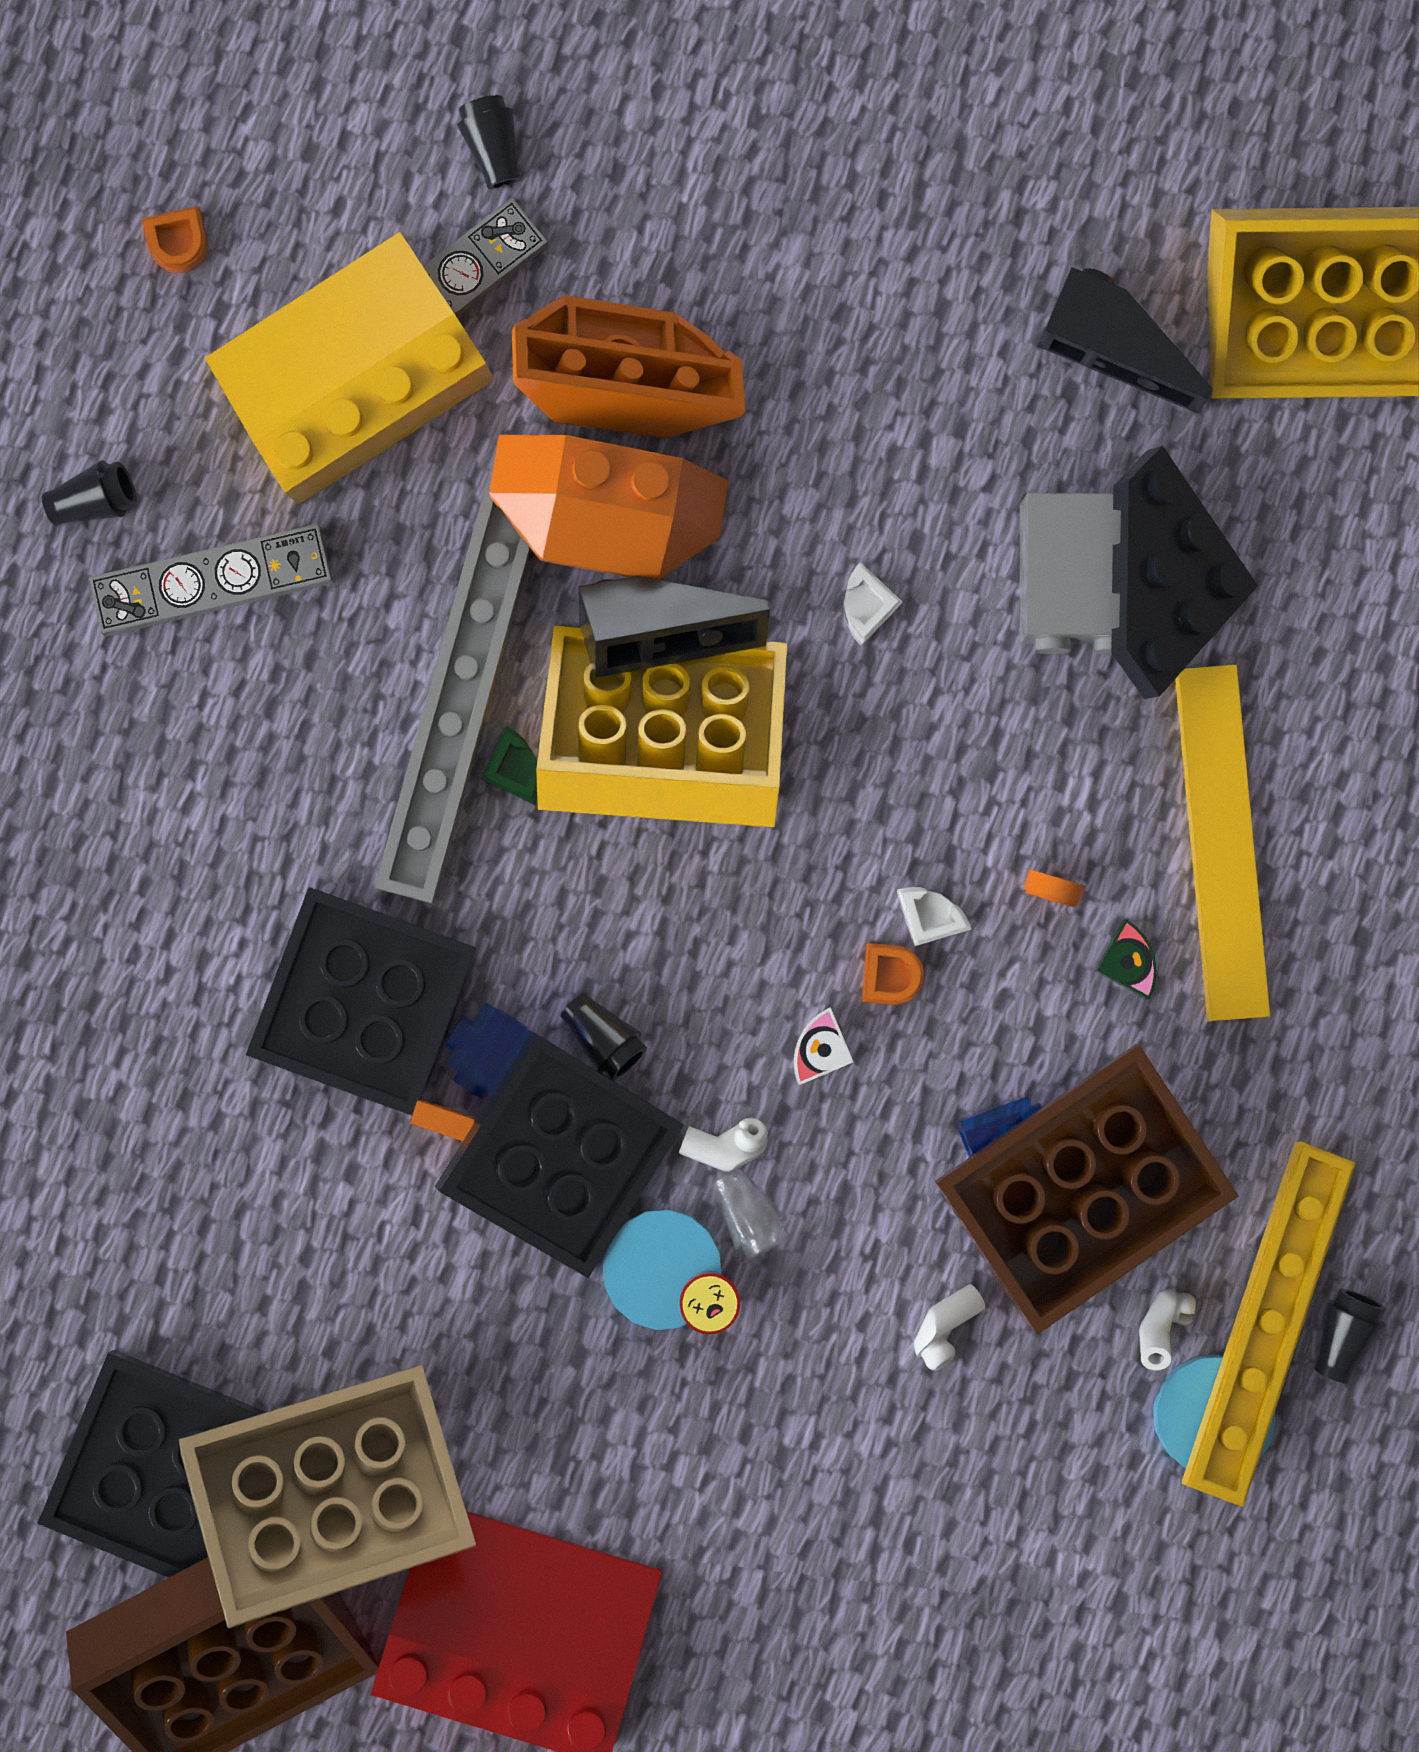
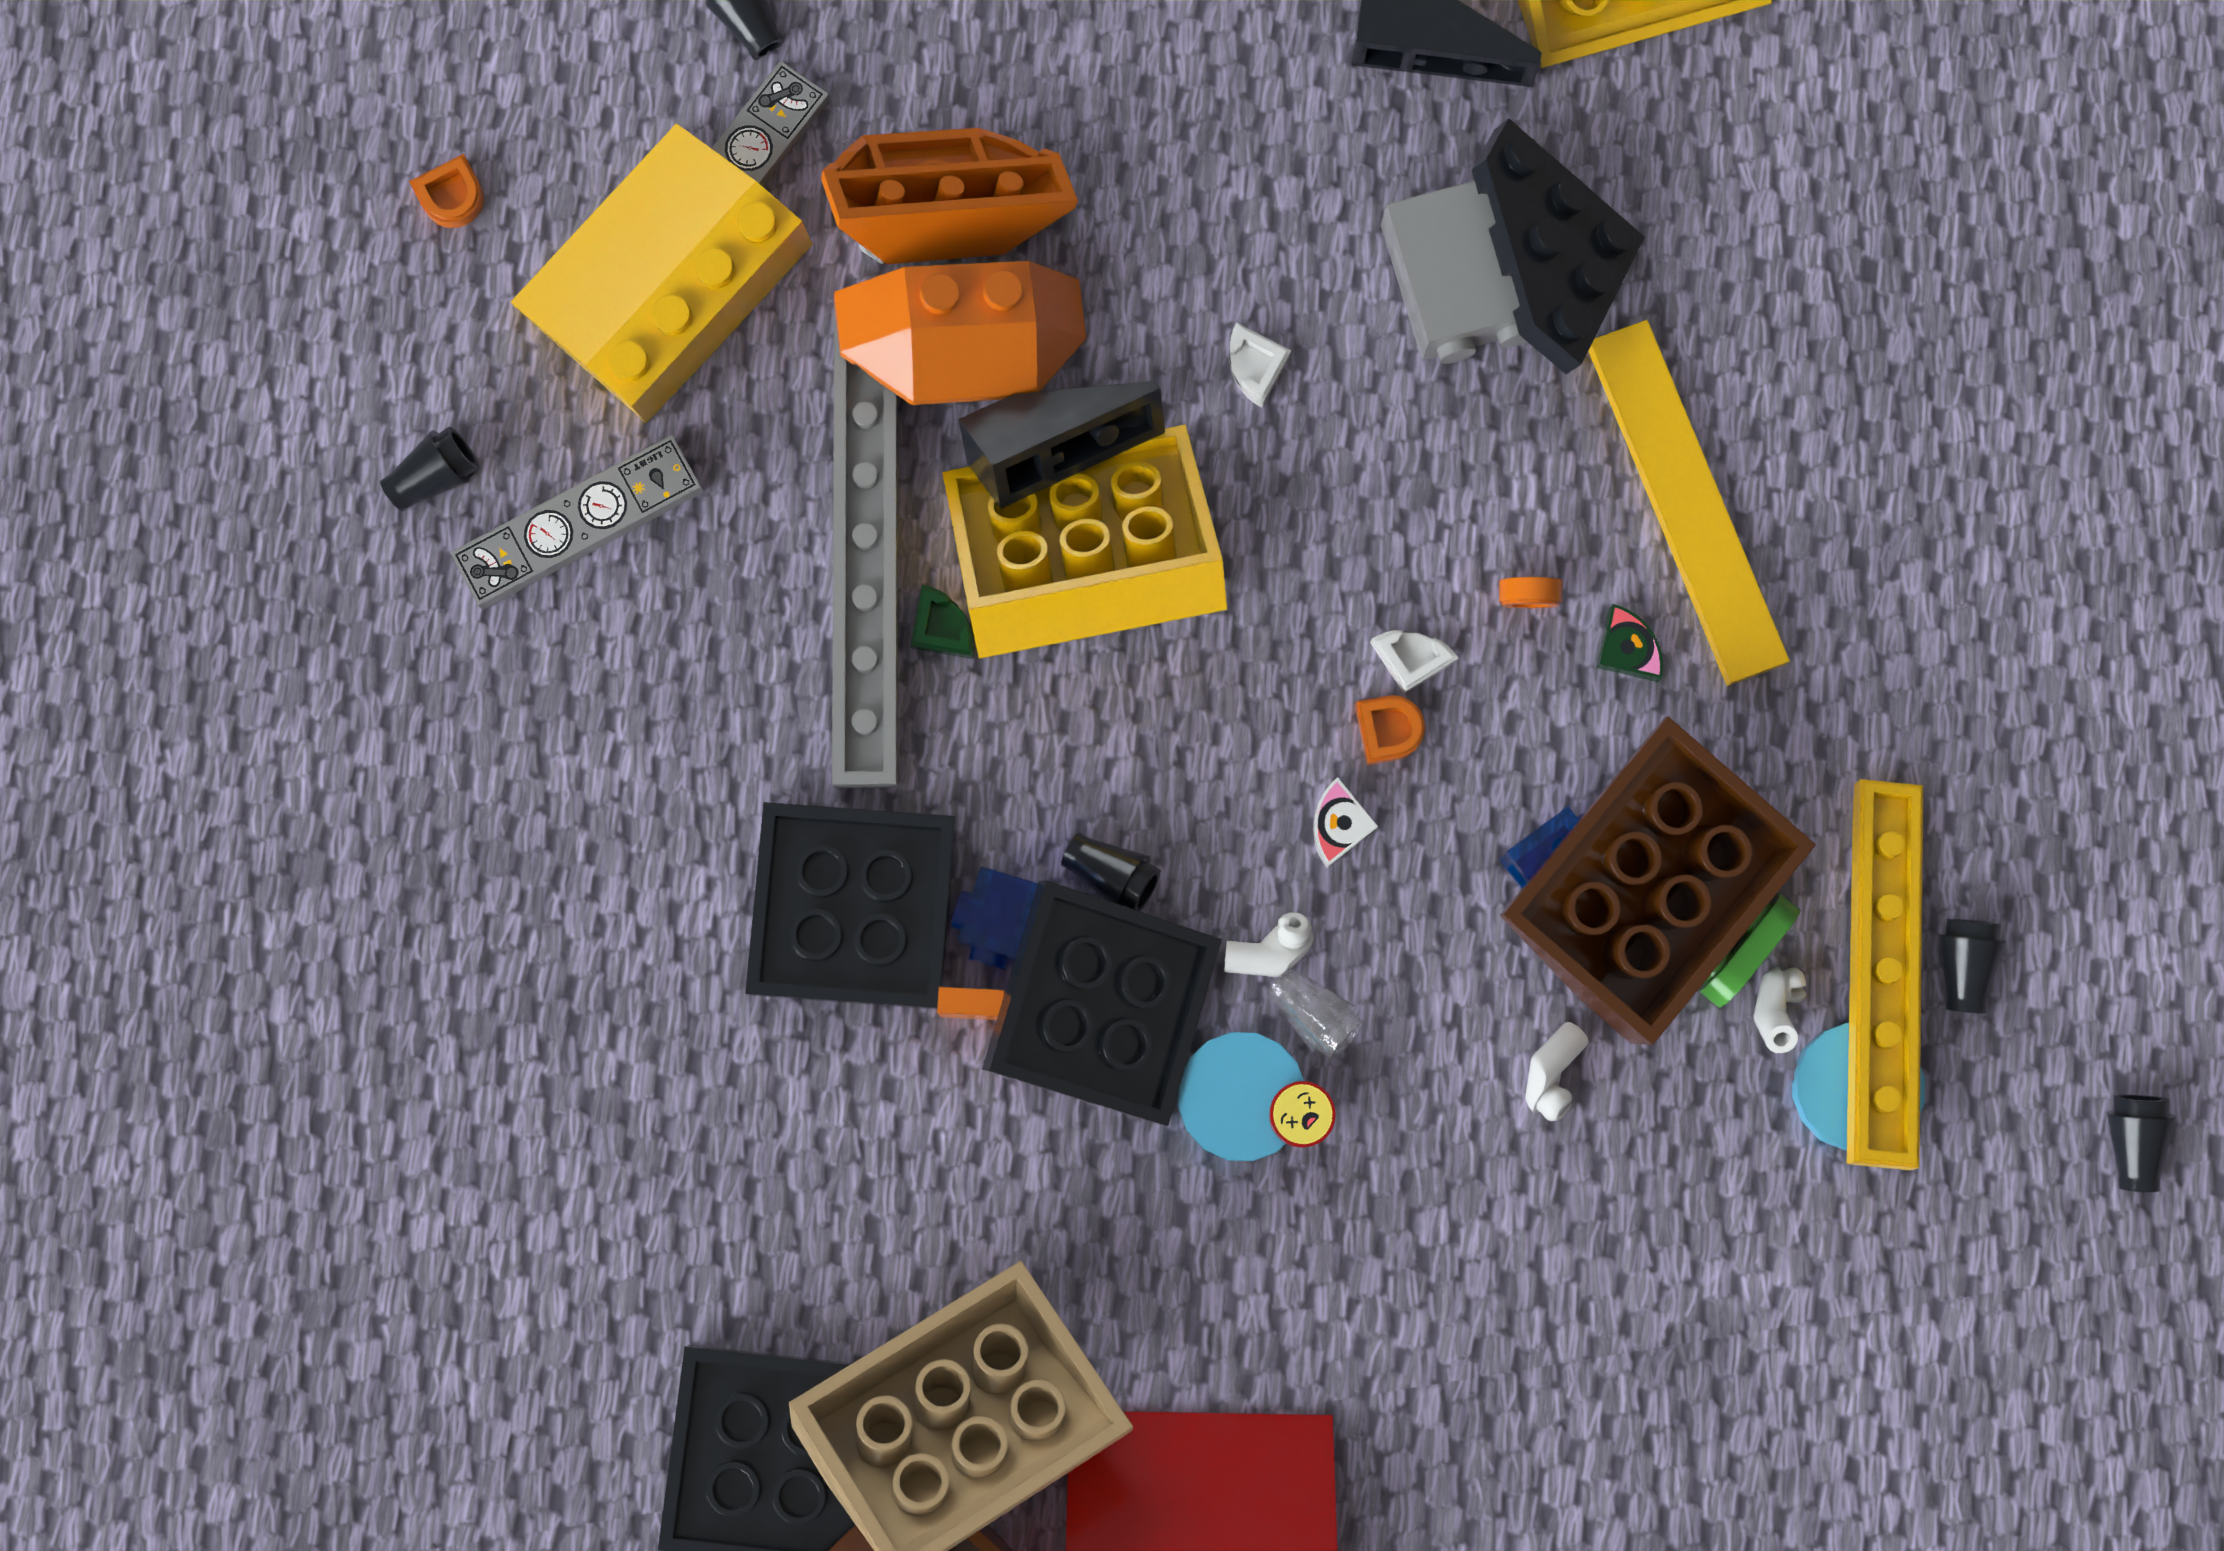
camera: 10 degrees left, 5 degrees down
(1155, 1270) = (1750, 951): none -> bright green plate

